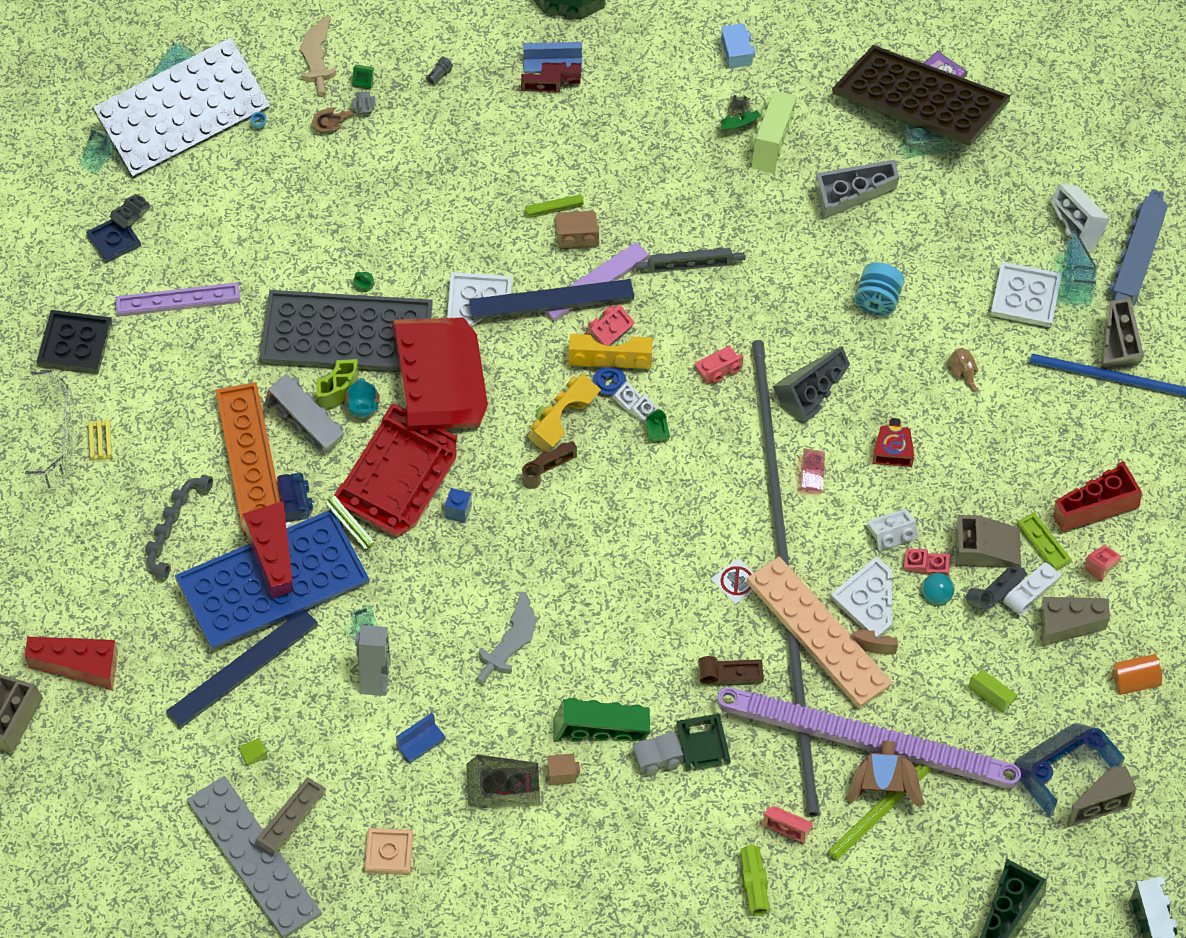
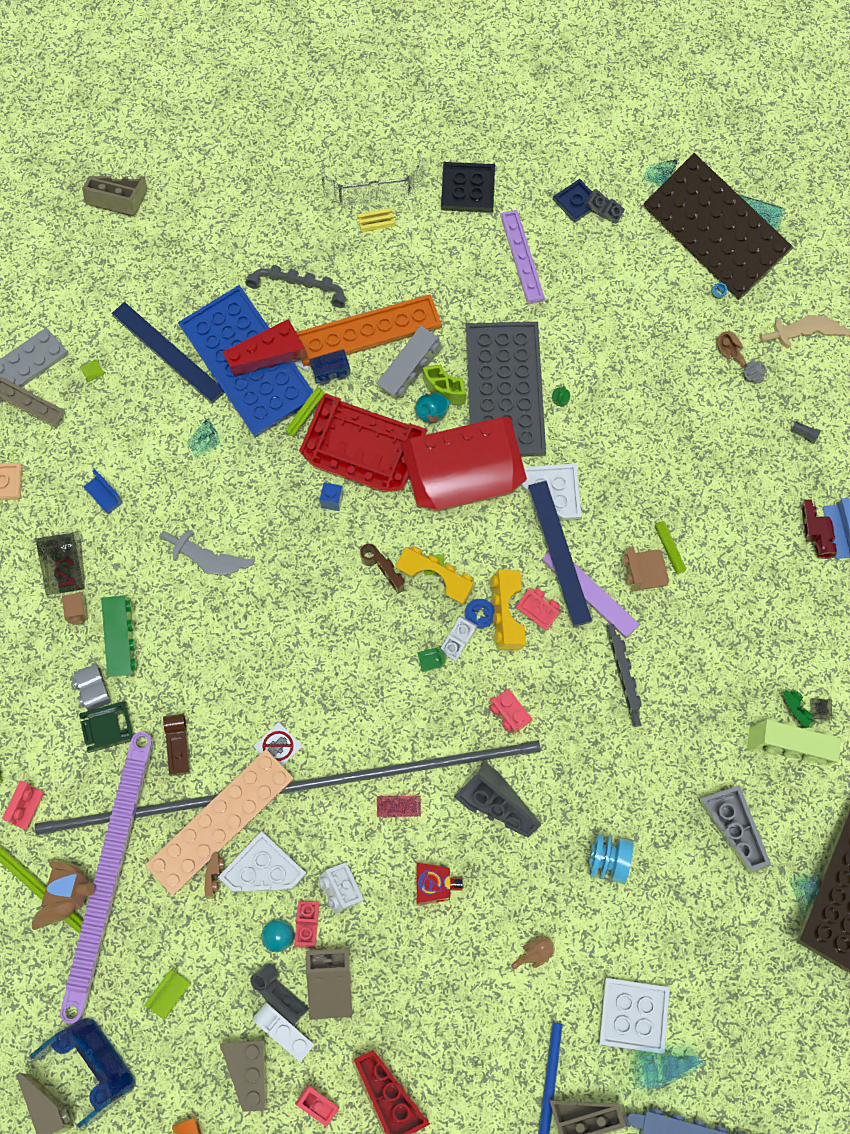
camera: 85 degrees right, 10 degrees up
(75, 658) = (164, 235): red wedge -> none
(363, 76) = (786, 368): green tile -> none
(373, 659) = (167, 443): light grey wedge -> none
(1043, 541) = (339, 1043): lime tile -> none
(1079, 214) = (741, 1072): white wedge -> none

